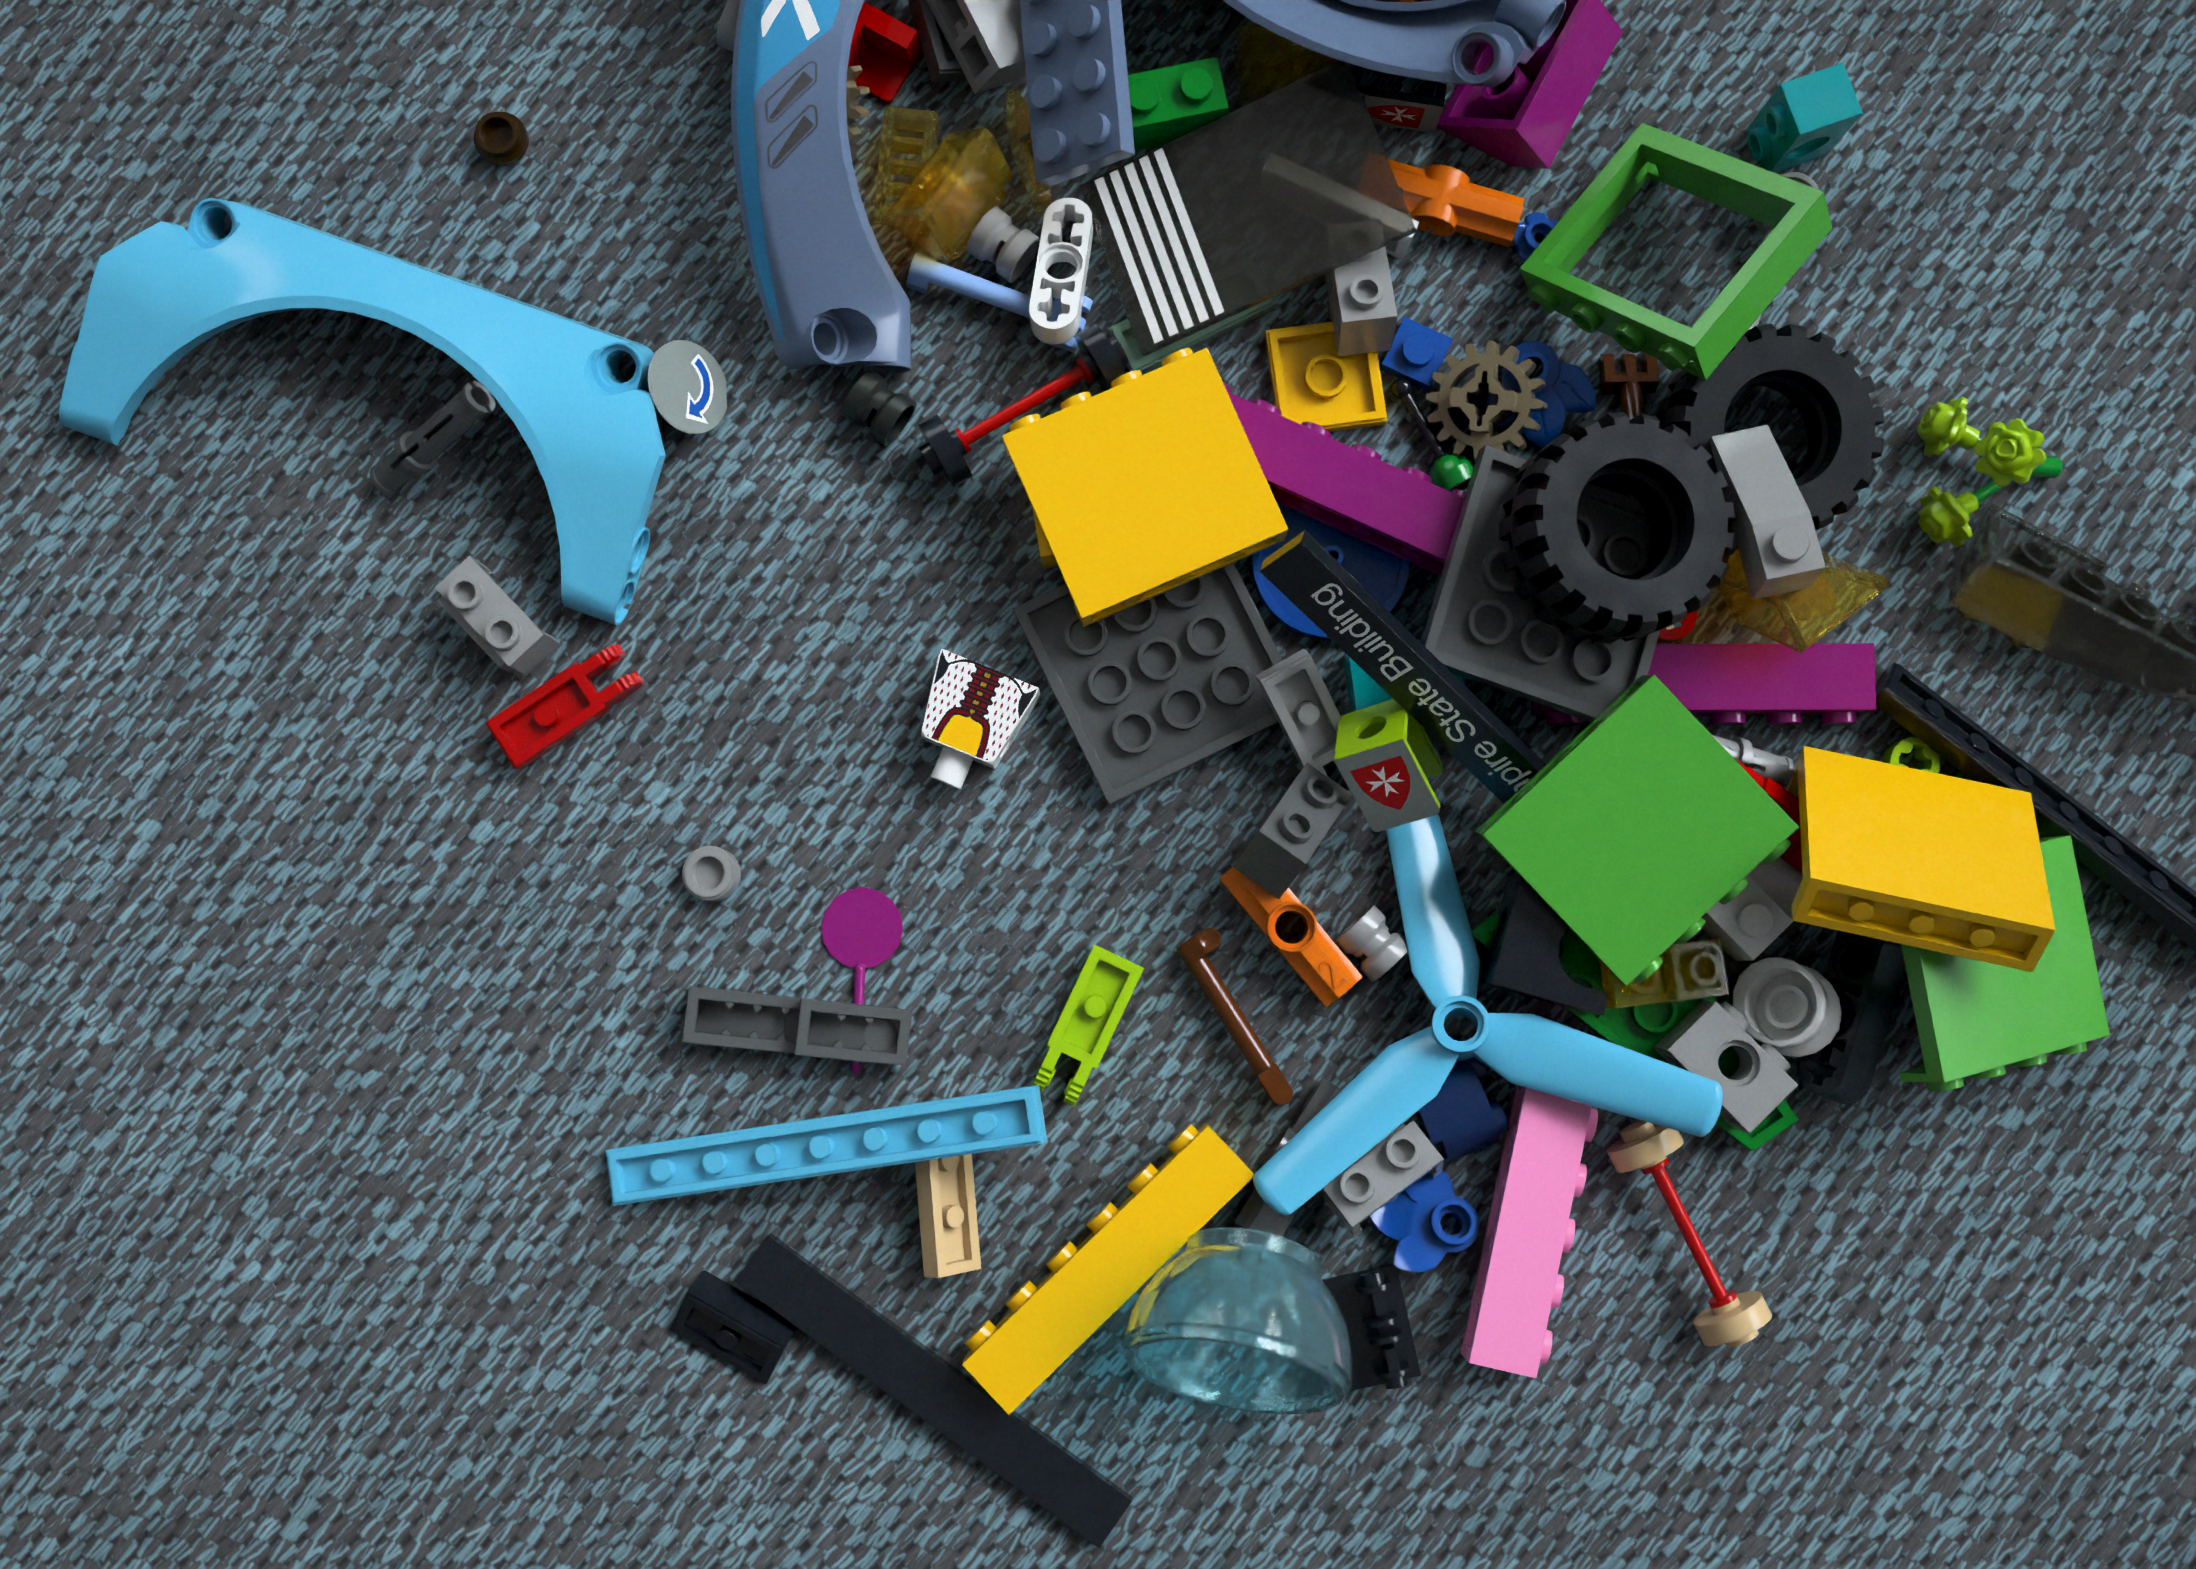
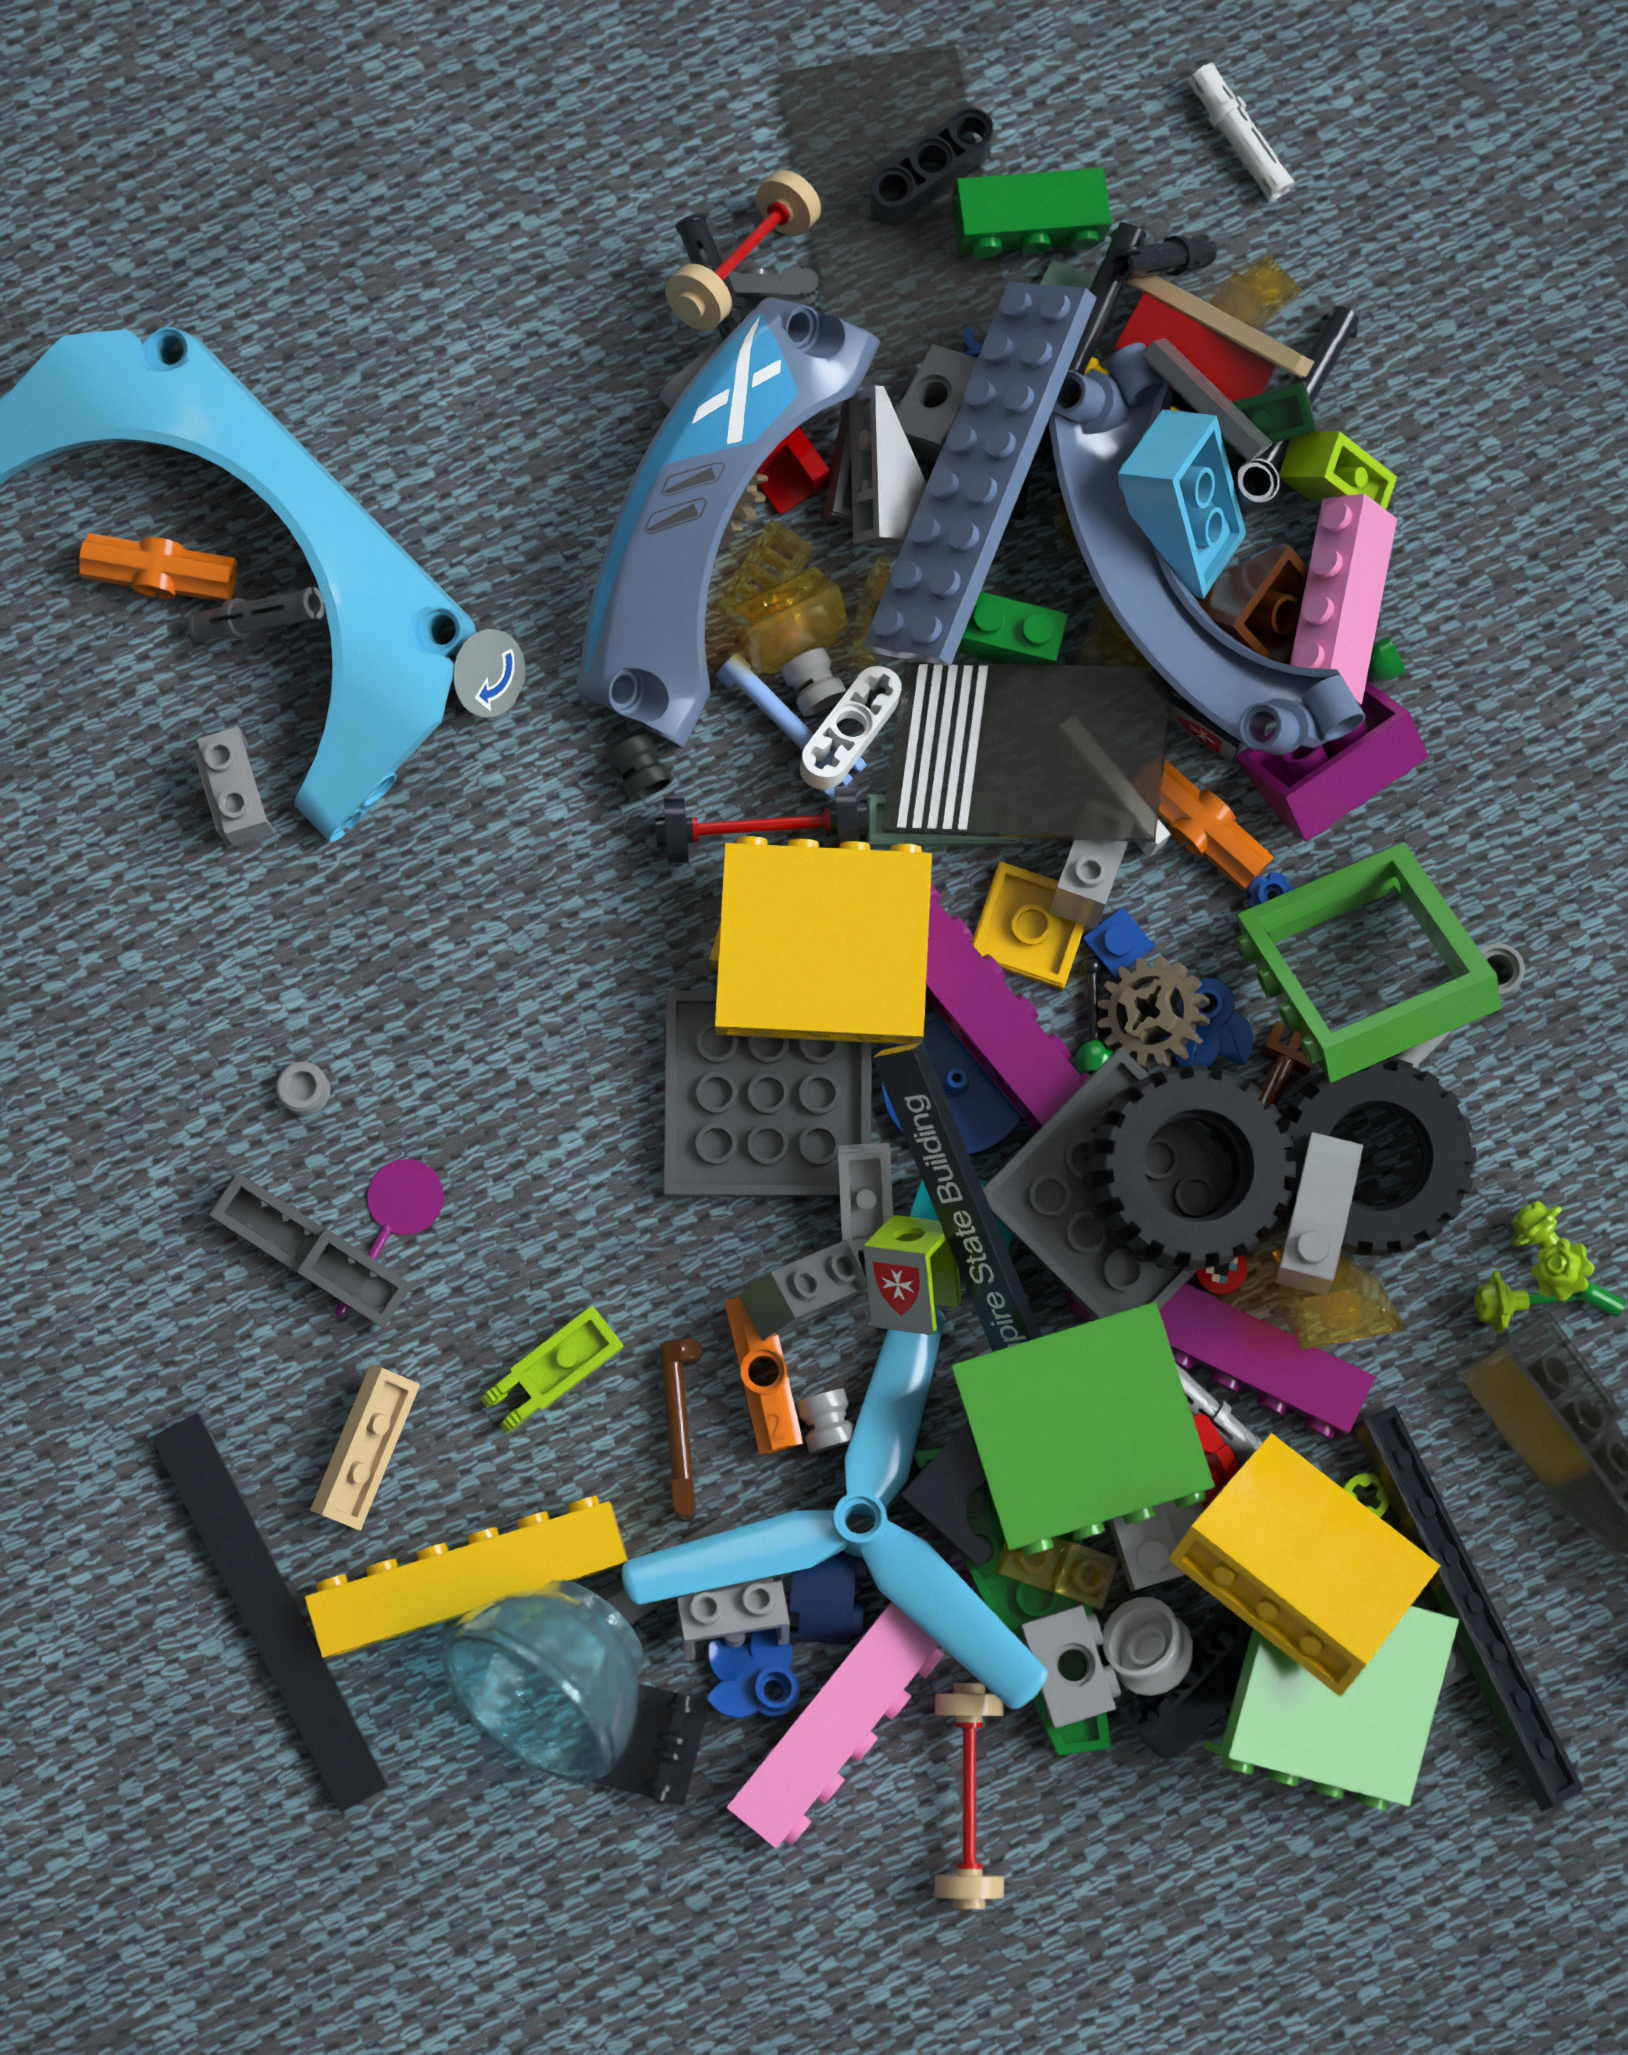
camera: 20 degrees right, 5 degrees down
(315, 441) = (158, 567): none -> orange piece
(501, 138) = (439, 388): dark brown plate -> none
(560, 708) = (248, 888): red hinge -> none
(733, 1326) = (130, 1476): black slope -> none
(827, 1145) = (284, 1359): medium azure tile -> none
(973, 715) = (588, 1064): torso -> none
(1804, 119) = (1539, 906): teal brick -> none

